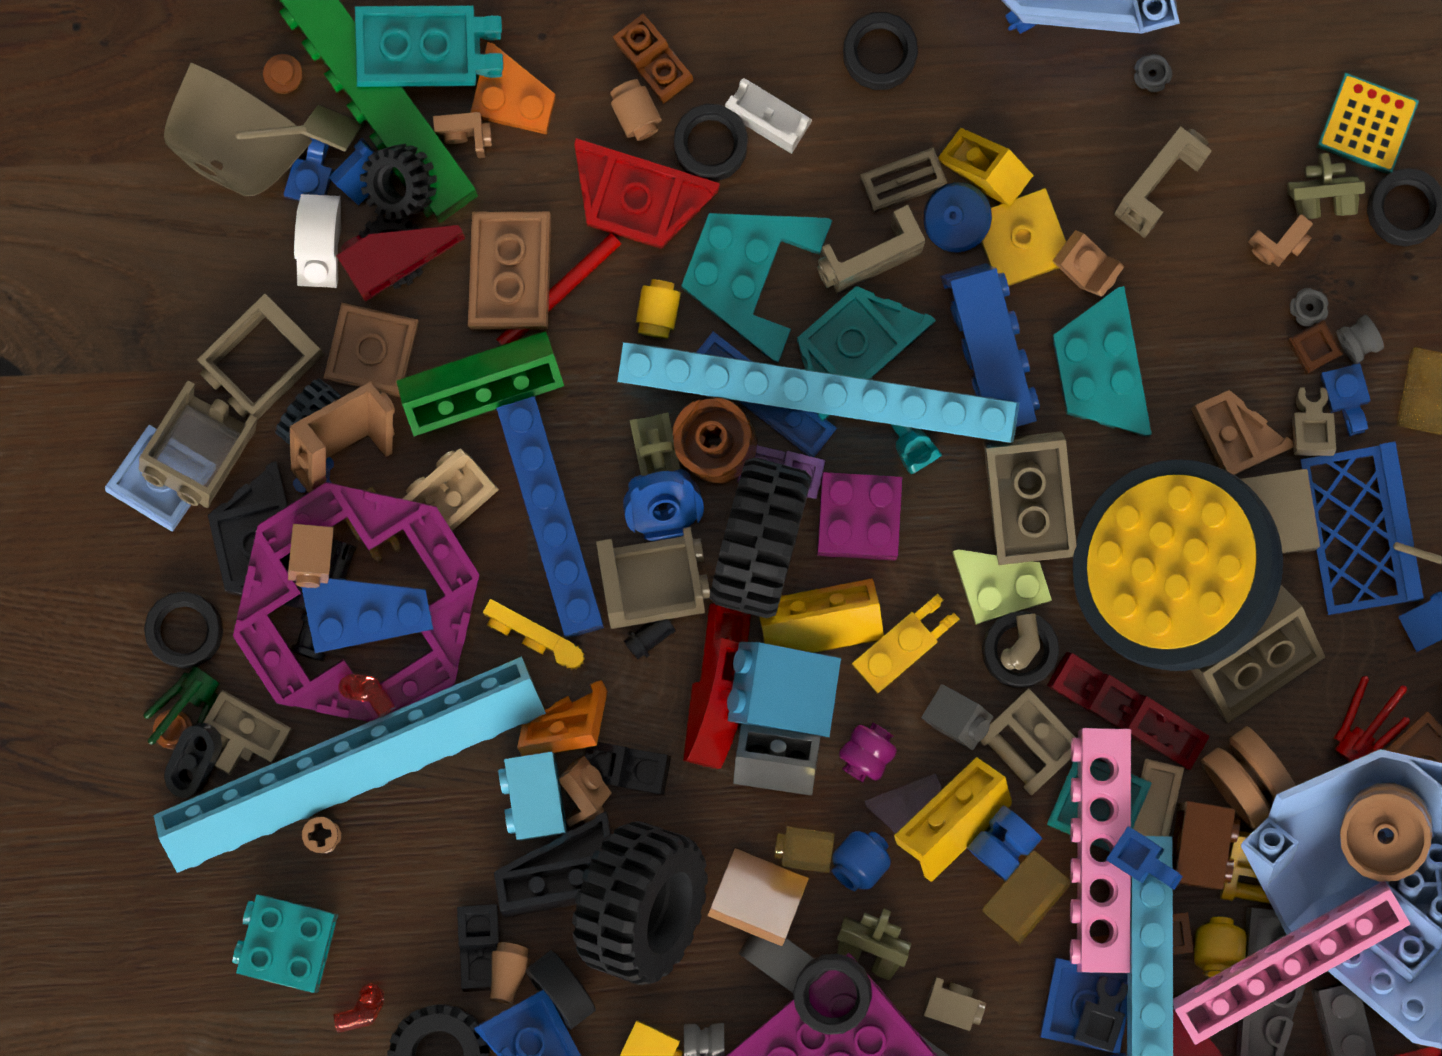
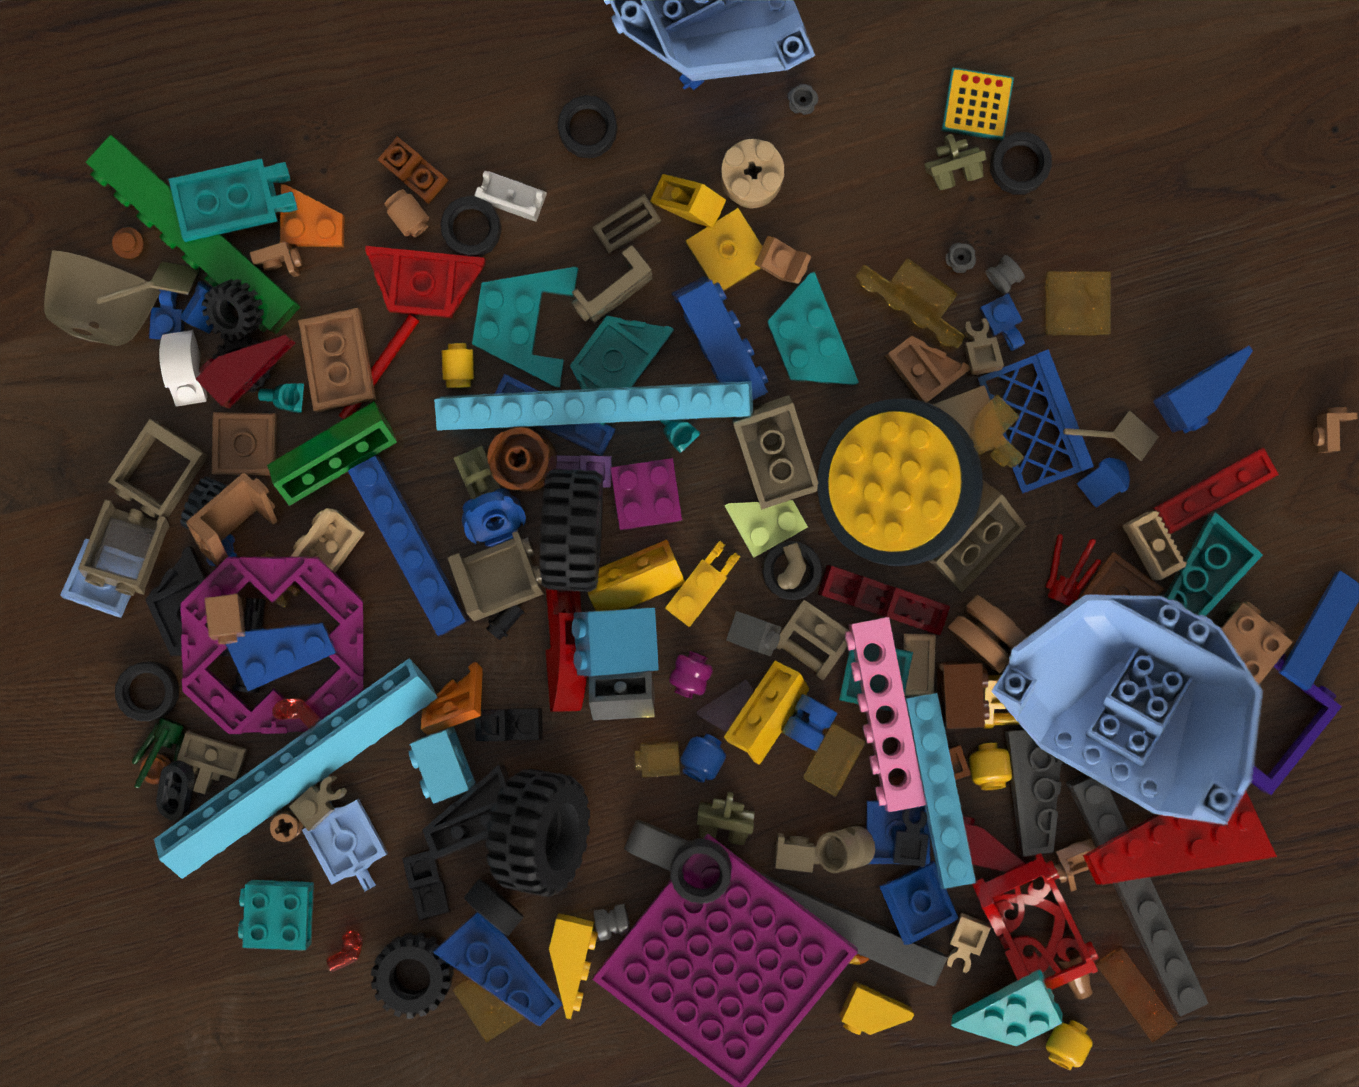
camera: 10 degrees left, 5 degrees up
(363, 814) = (315, 804): none -> dark tan plate
(389, 870) = (347, 844): none -> light blue plate
(435, 302) = (284, 396): none -> teal piece
(508, 970) = (450, 900): medium nougat cone -> none
(535, 636) = (417, 638): yellow hinge -> none
(586, 789) = (480, 750): medium nougat bracket -> none
(758, 897) = (629, 803): tile -> none
(957, 217) = (674, 244): blue piece -> none
(1017, 1011) = (845, 849): none -> dark tan wheel
(1088, 134) = (763, 159): none -> tan brick
(1135, 208) = (811, 210): dark tan panel -> none
(1140, 857) = (915, 717): blue plate -> none
(1247, 342) = (919, 296): none -> clear yellow bracket
(1290, 962) = (1048, 772): bright pink brick -> none
(1293, 241) = (938, 209): medium nougat bracket -> none
(1300, 524) = (988, 428): none -> clear yellow brick
(1315, 347) = (971, 287): reddish brown tile -> none
(1369, 848) = (1101, 676): medium nougat wheel -> none

